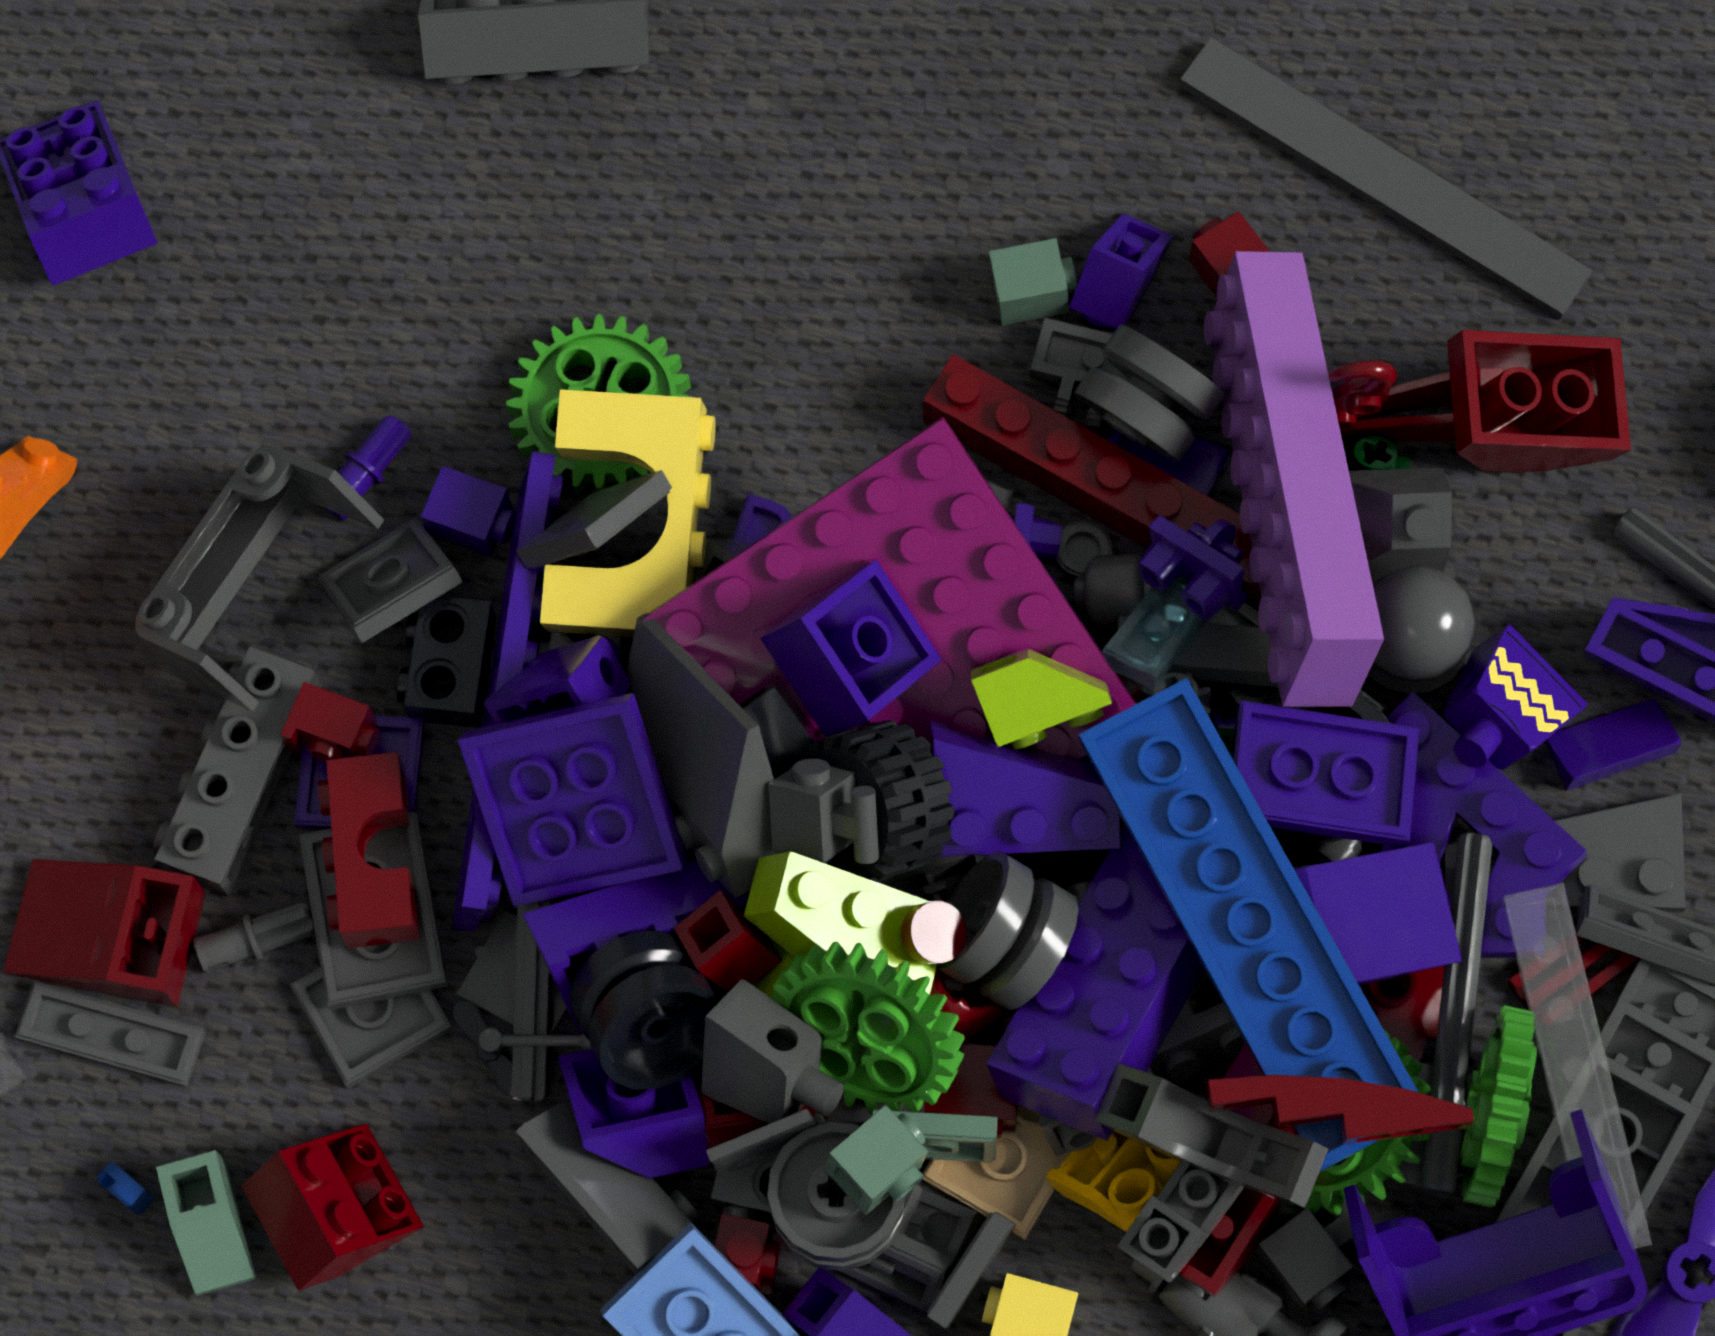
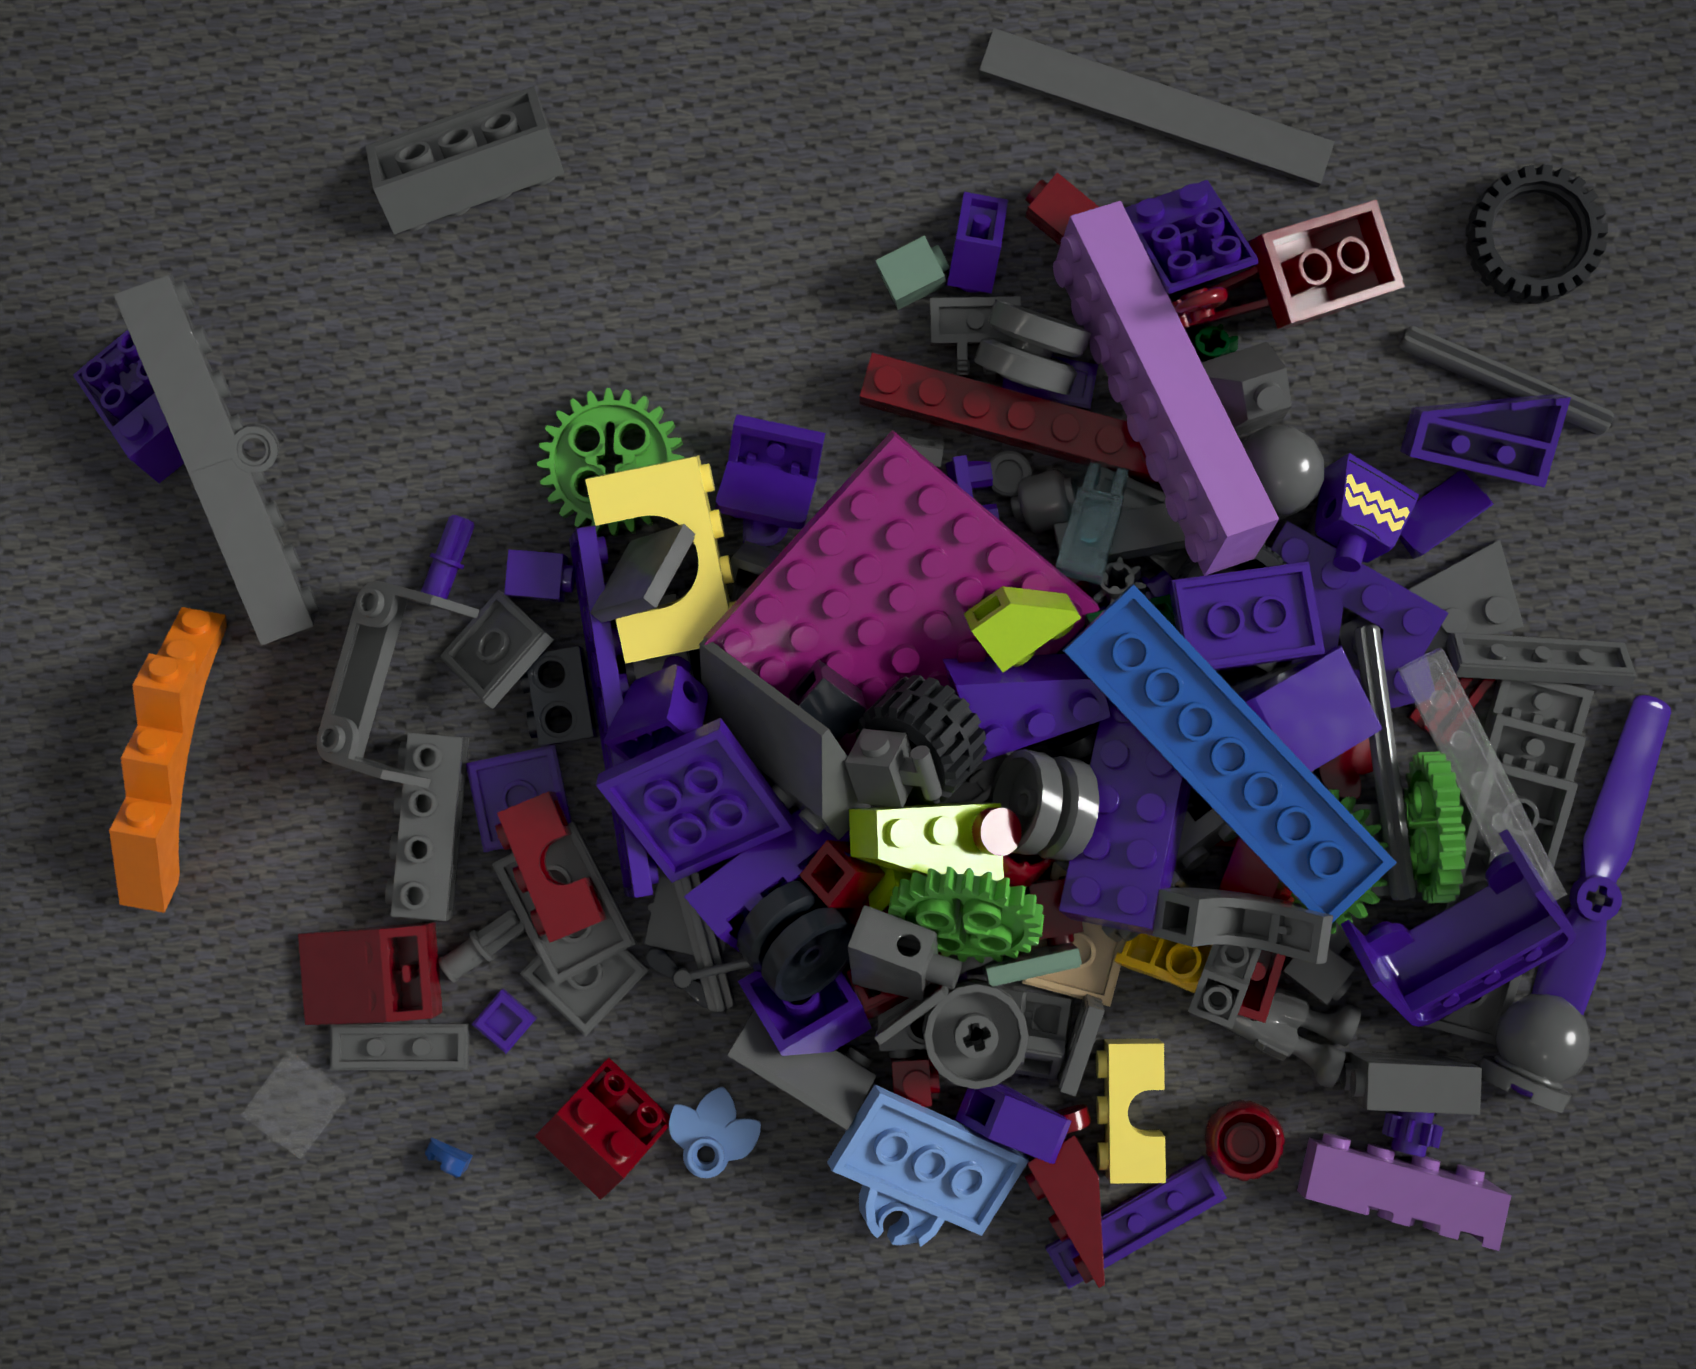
camera: 20 degrees left, 15 degrees up
(131, 264) = (216, 457): none -> dark grey hinge
(206, 1221) = (517, 1168): sand green slope -> none
(250, 1039) = (504, 1021): none -> dark purple tile
(329, 725) = (489, 777): dark red brick -> none
(472, 1247) = (713, 1126): none -> medium blue plate
(788, 457) = (770, 472): none -> dark purple bracket
(851, 650) = (872, 630): dark purple slope -> none
(879, 1160) = (1005, 1012): sand green brick -> none
(1201, 557) = (1123, 483): dark purple hips -> none
(1362, 1108) = (1351, 881): dark red slope -> none
(1375, 314) = (1190, 236): none -> dark purple slope

